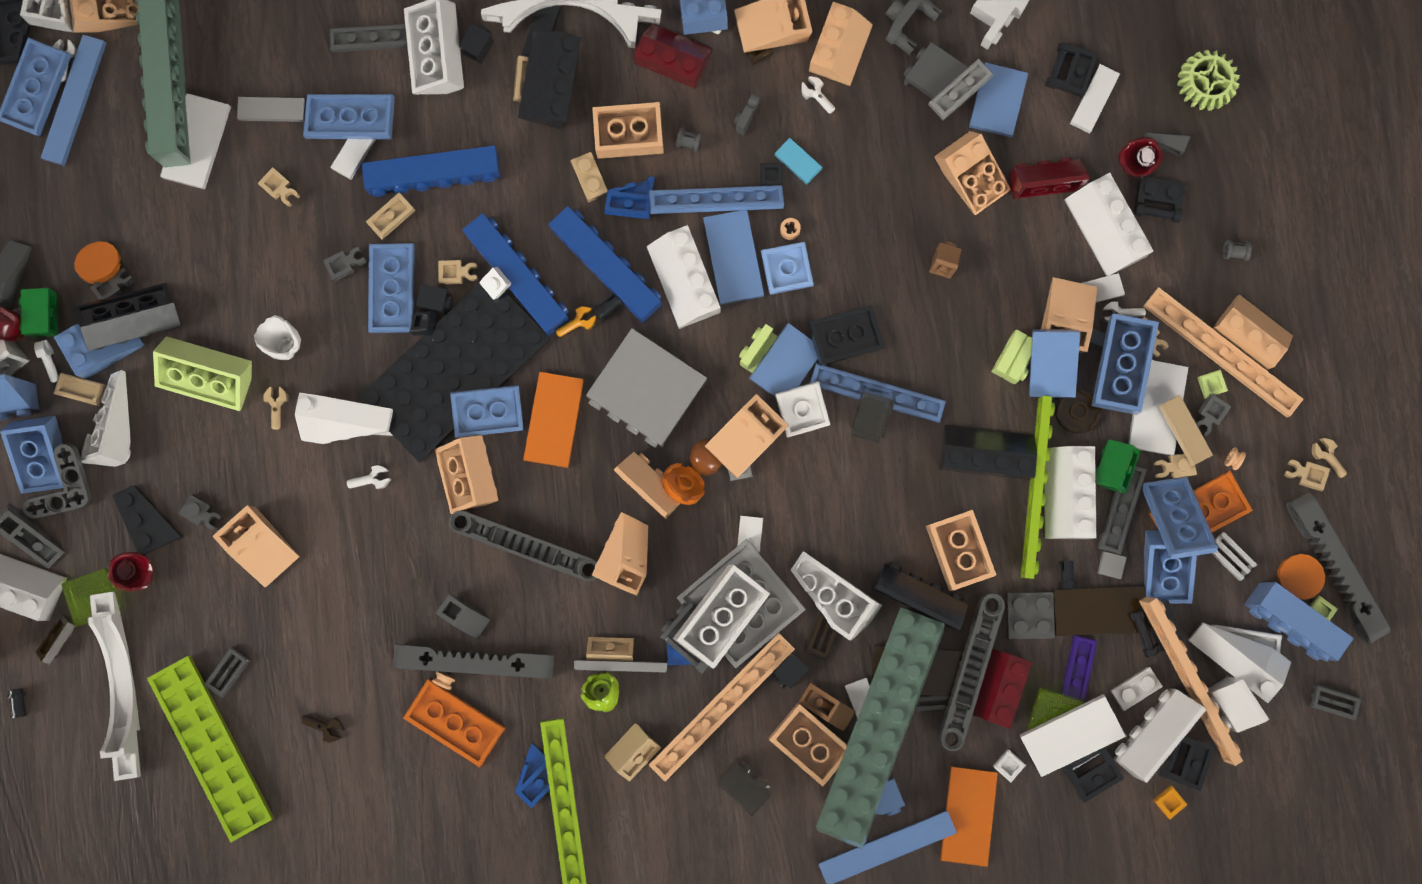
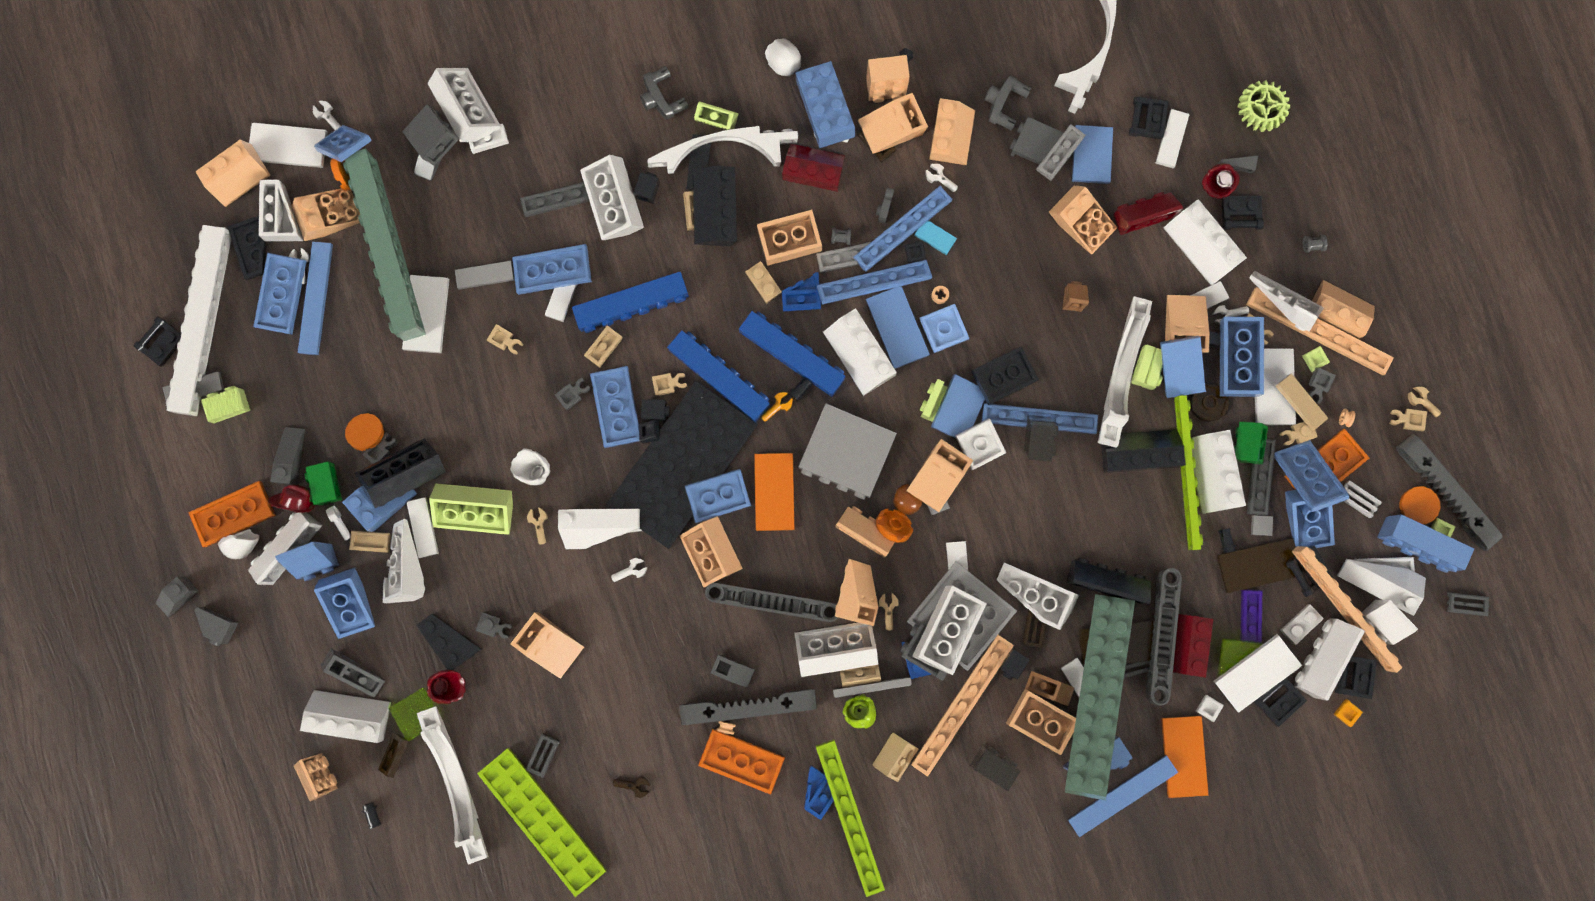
camera: 10 degrees left, 0 degrees up
(70, 487) = (380, 626): dark grey beam -> none
(142, 385) = (422, 527): none -> white tile
(495, 283) = (704, 386): white plate -> none
(587, 614) = (836, 648): none -> white slope
(658, 581) = (888, 610): none -> tan bar
(689, 165) = (838, 258): none -> light grey tile
(761, 144) = (902, 228): none -> medium blue tile
(961, 550) = (1135, 537): light nougat brick -> none
(976, 374) = (1116, 402): none -> white slope
(1030, 615) = (1202, 580): dark grey plate -> none
(1198, 318) = (1293, 305): none -> white wedge

